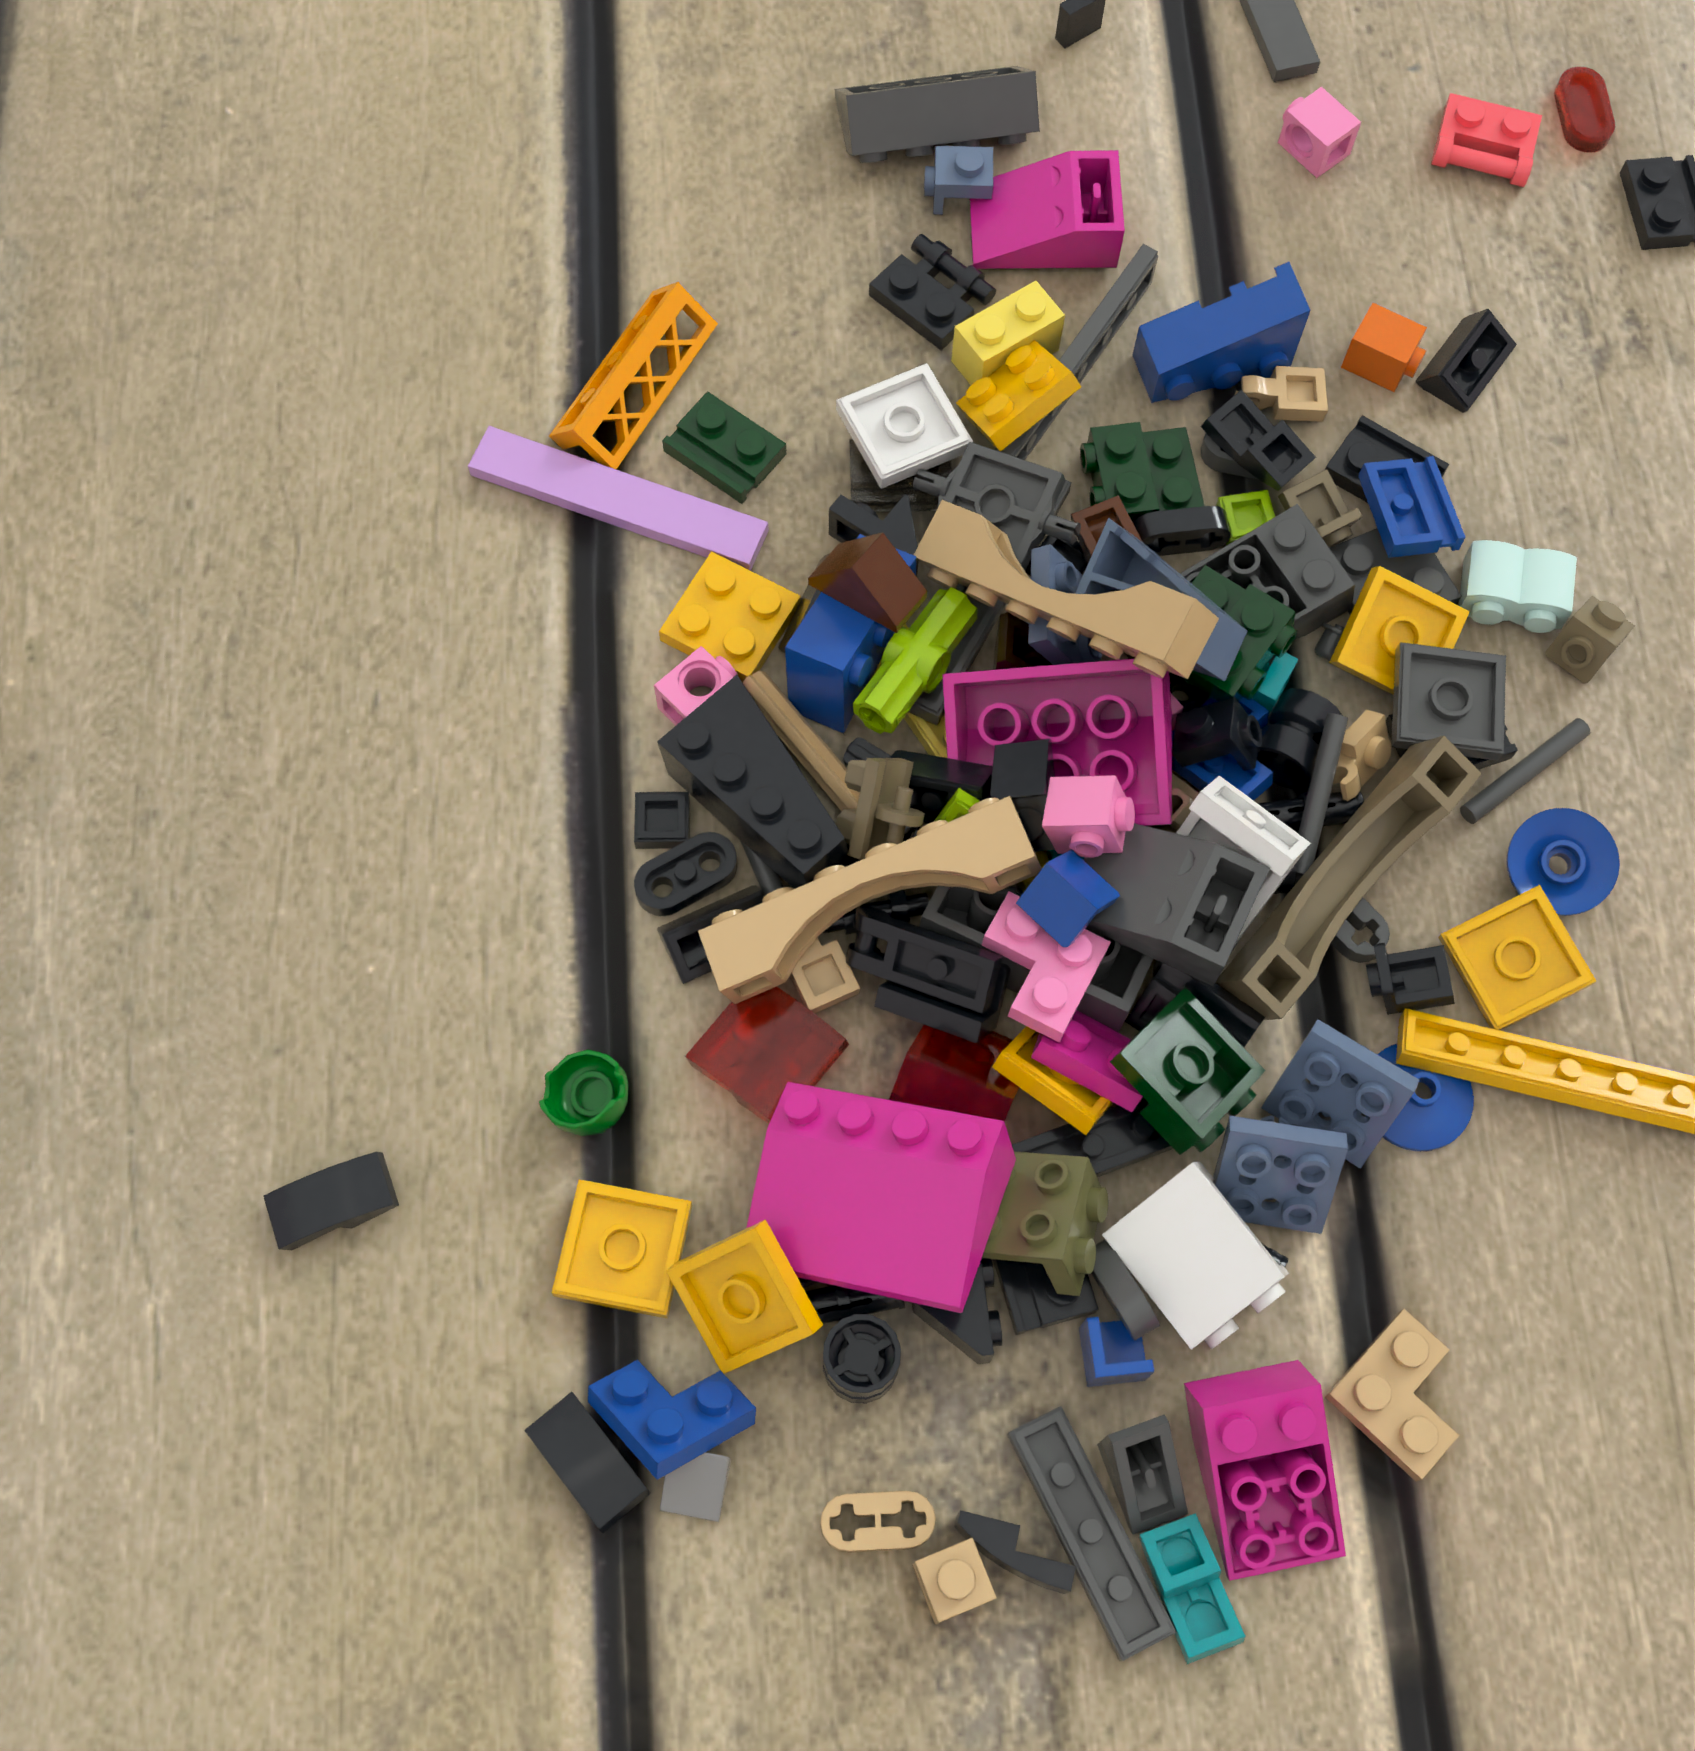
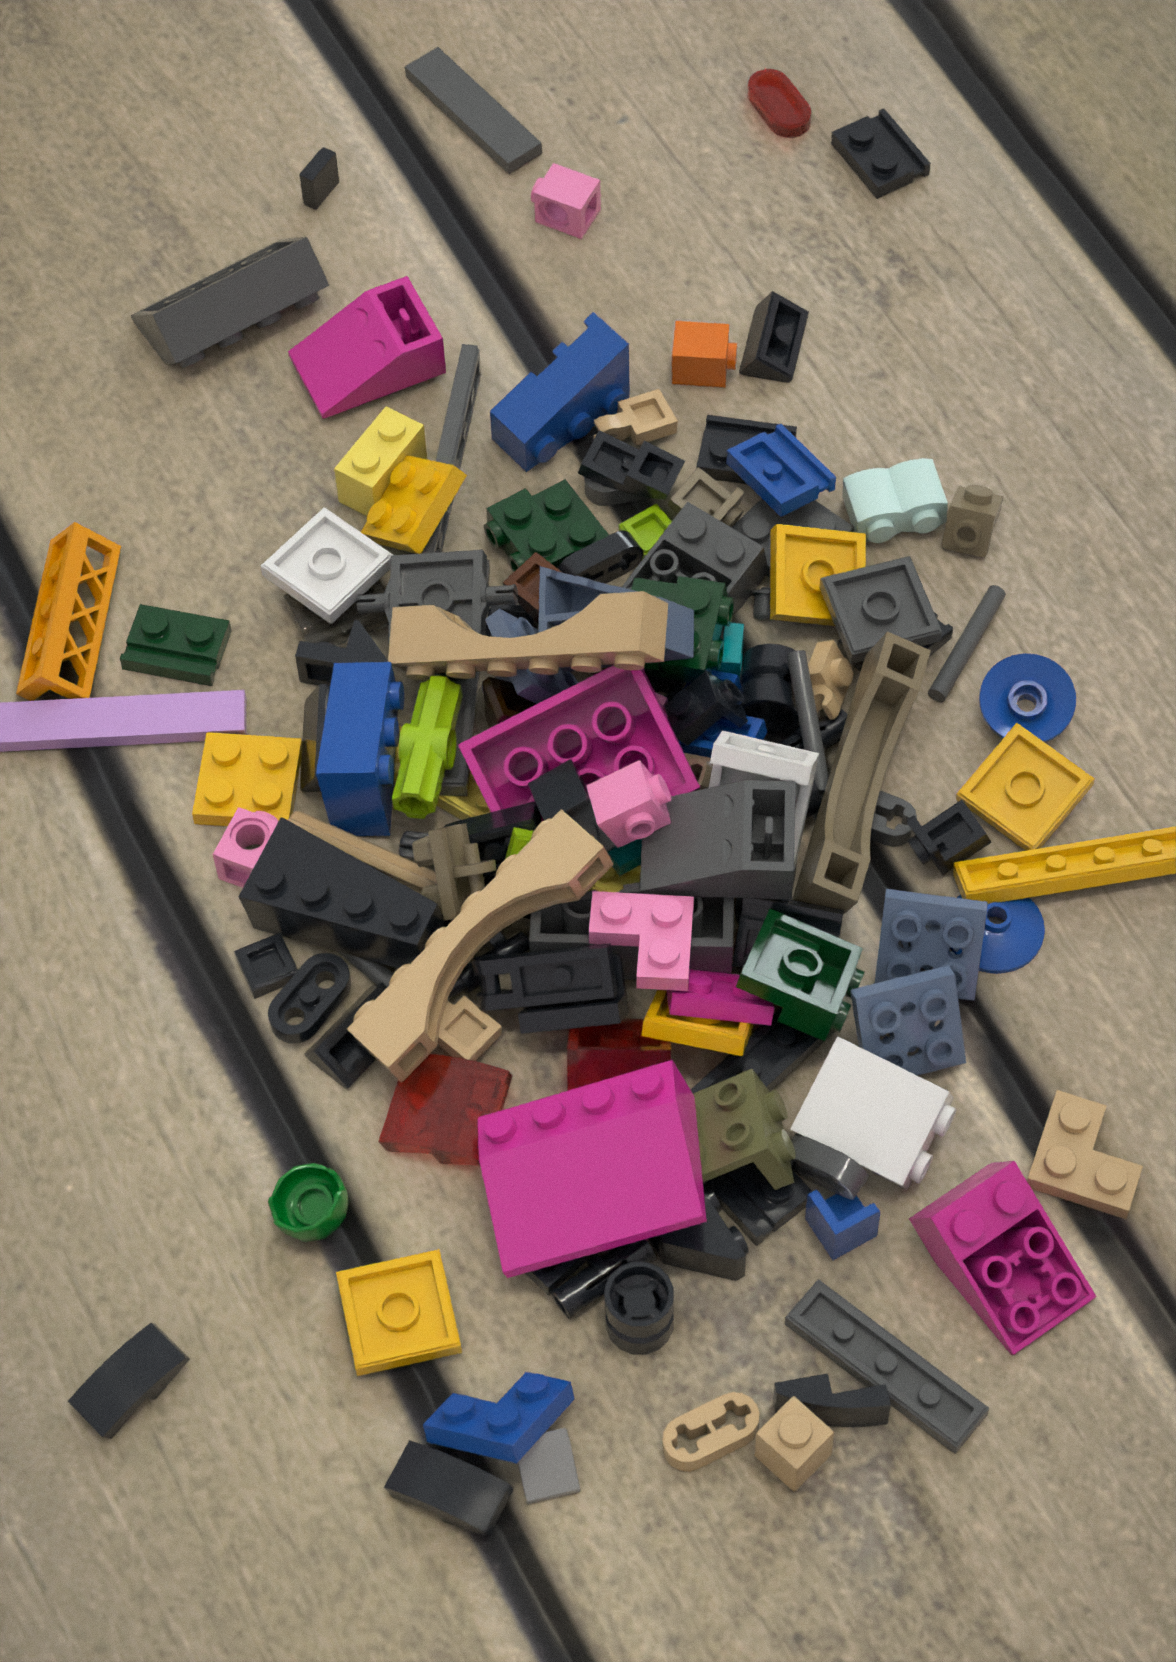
camera: 20 degrees left, 10 degrees down
(744, 1297) = (521, 1298): yellow plate -> none
(871, 580) = (363, 692): reddish brown slope -> none
(921, 300) = (294, 462): black plate -> none
(959, 174) = (276, 345): sand blue bracket -> none
(1066, 897) = (642, 872): blue panel -> none
(1145, 1473) = (907, 1296): dark grey slope -> none
(1191, 1588) = (979, 1366): teal slope -> none
(1487, 138) = (709, 155): coral plate -> none

